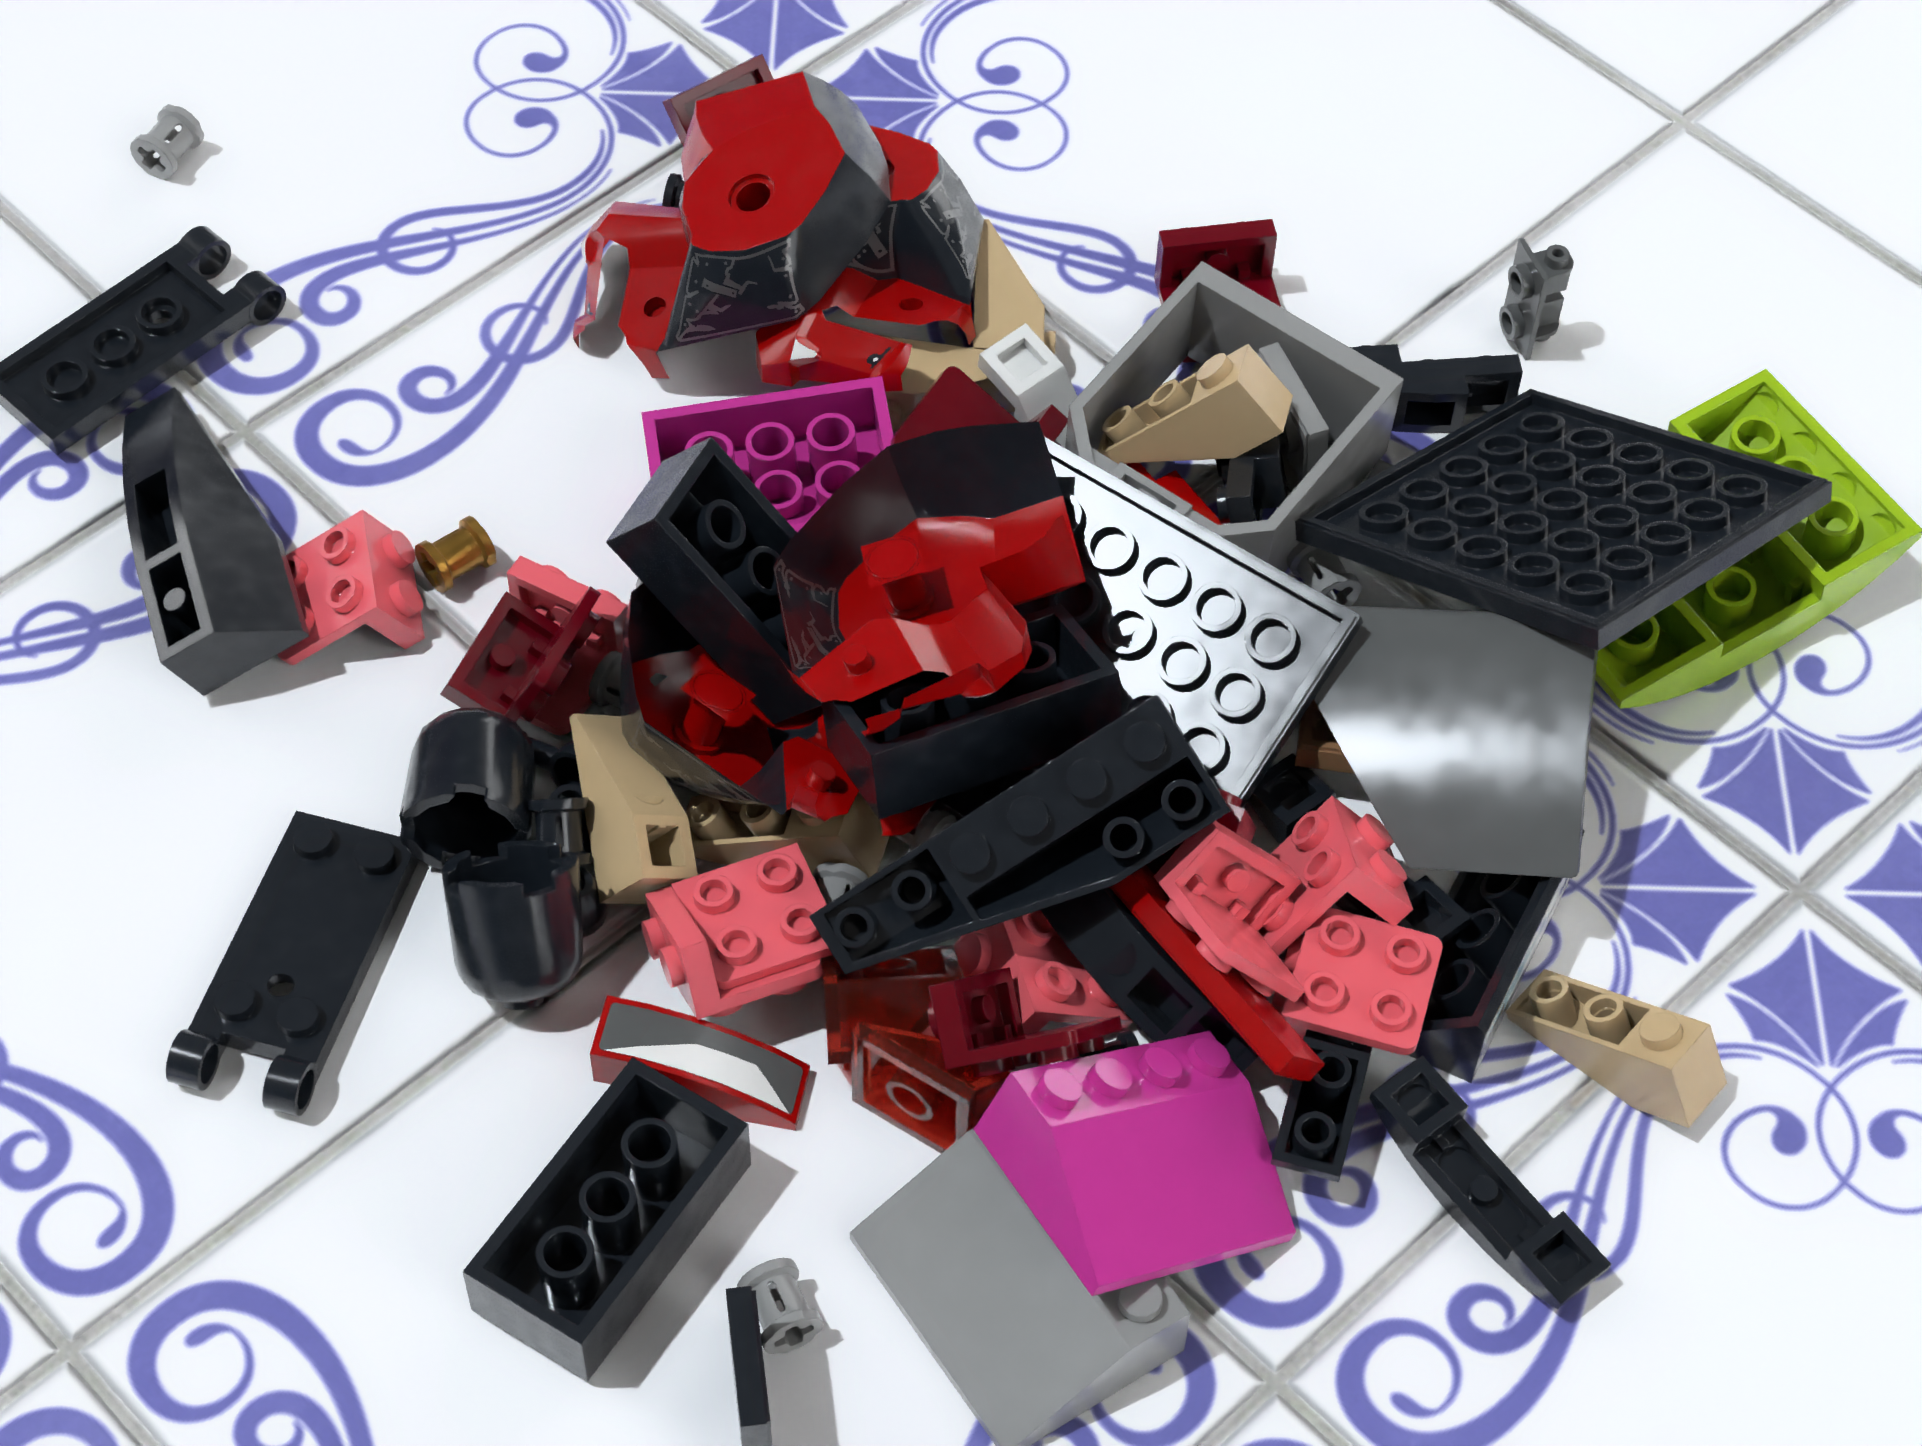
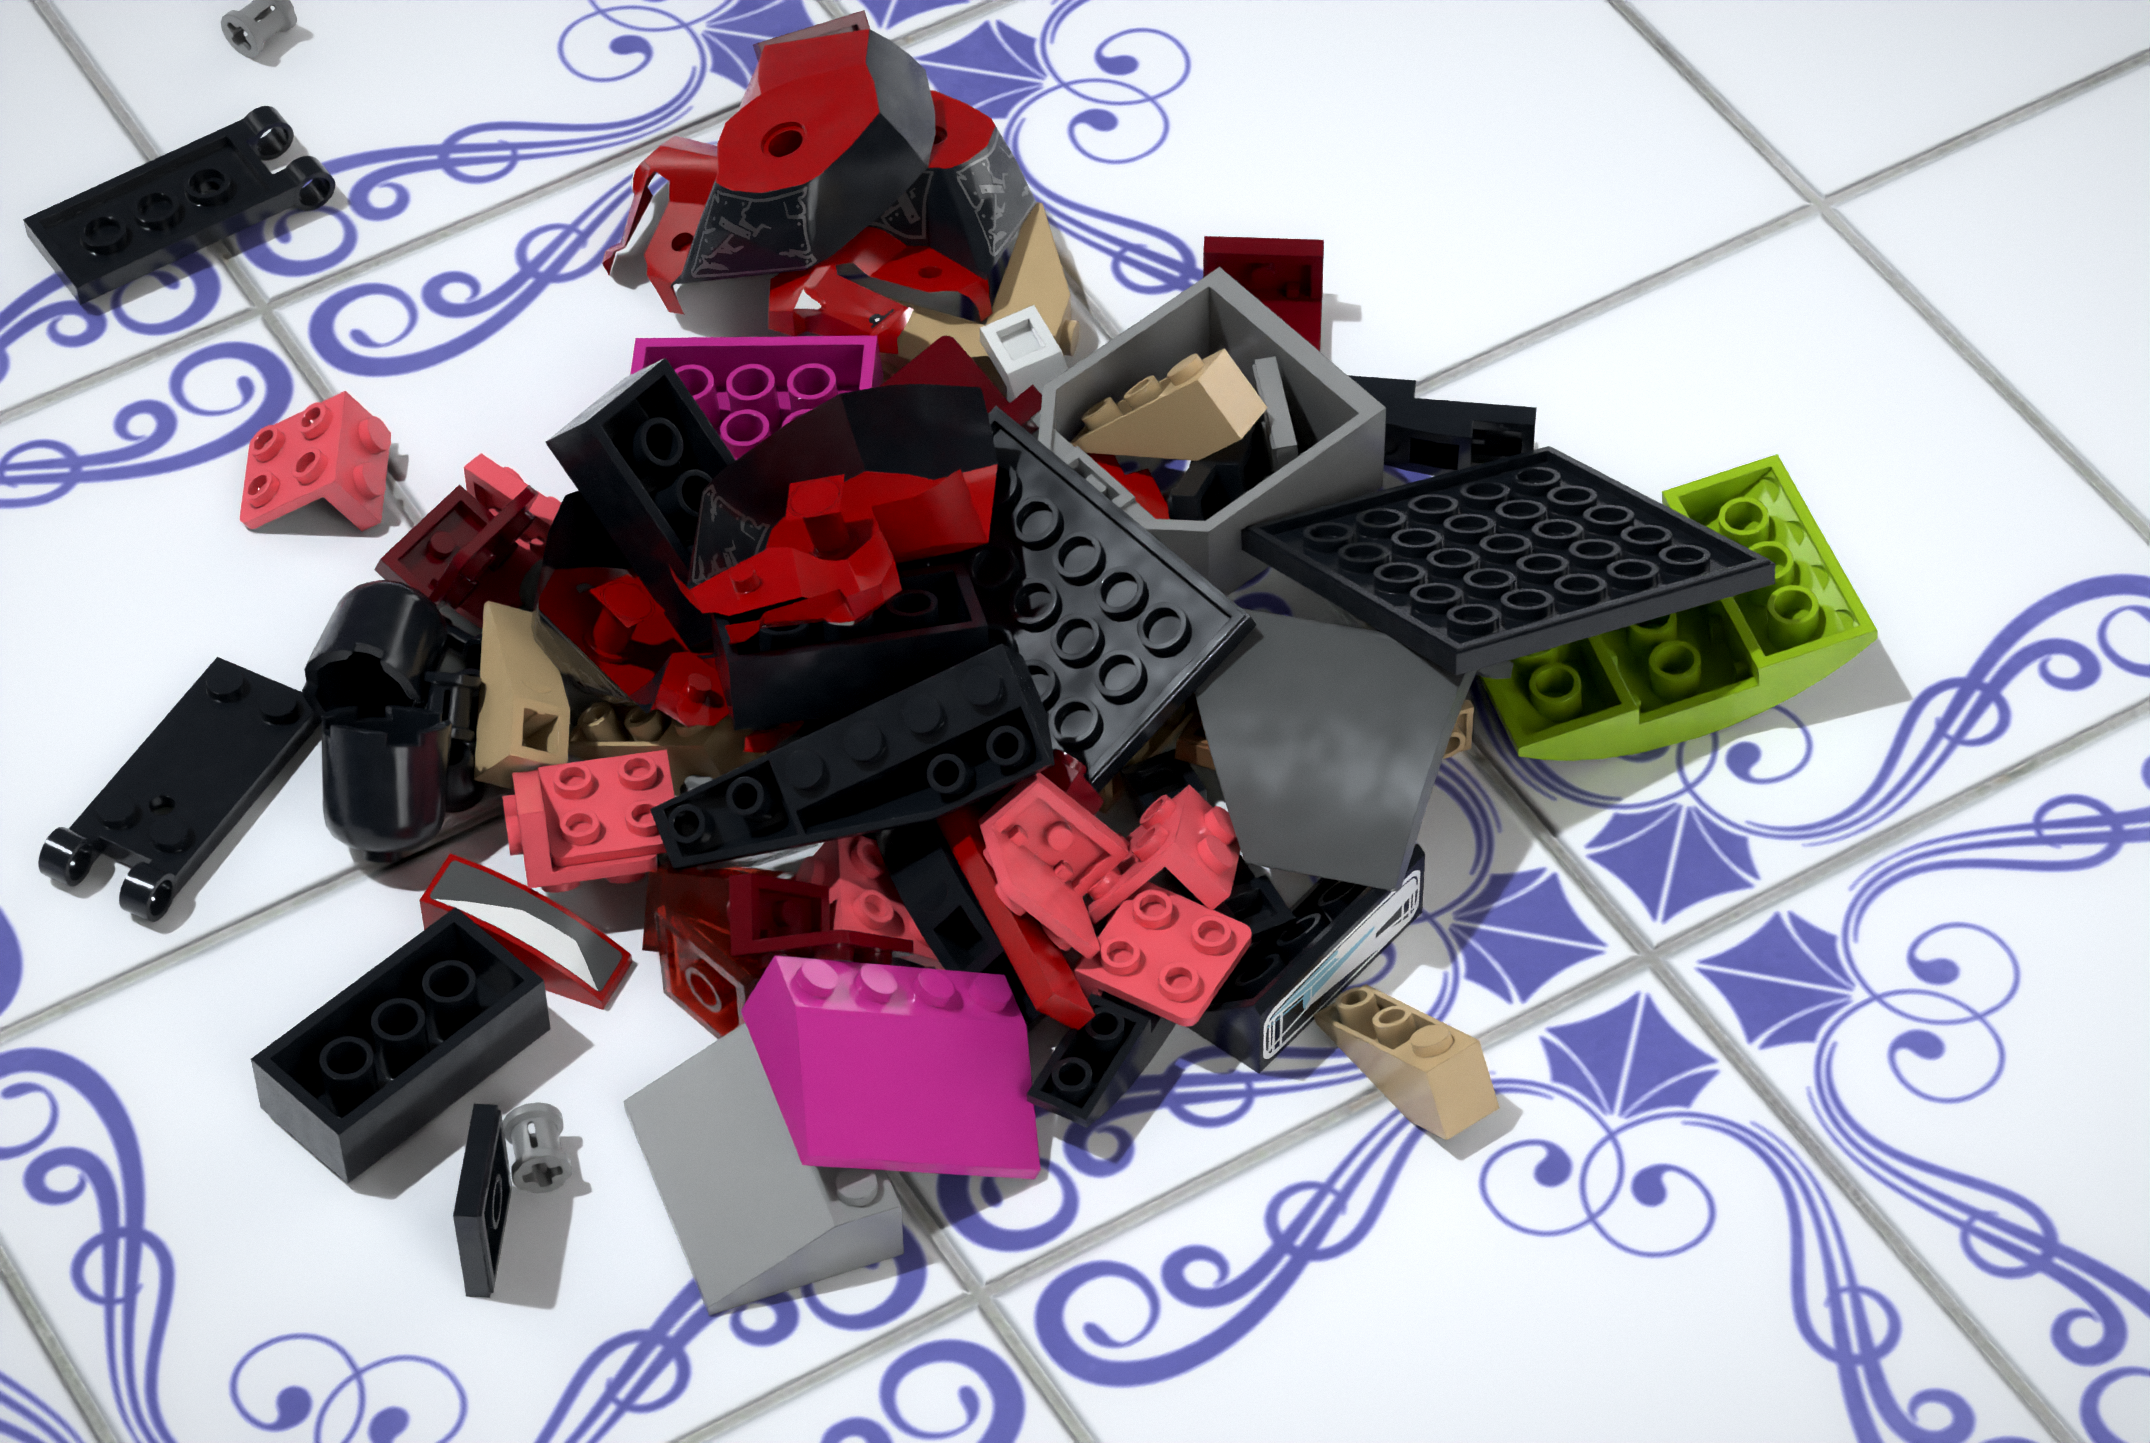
camera: 15 degrees right, 5 degrees down
(203, 551) = (188, 409): black wedge -> none
(455, 554) = (429, 448): pearl gold bush -> none
(1324, 573) = (1271, 590): light grey bush -> none
(1480, 1190) = (1224, 1155): black slope -> none
(1535, 295) = (1579, 347): dark grey hinge -> none

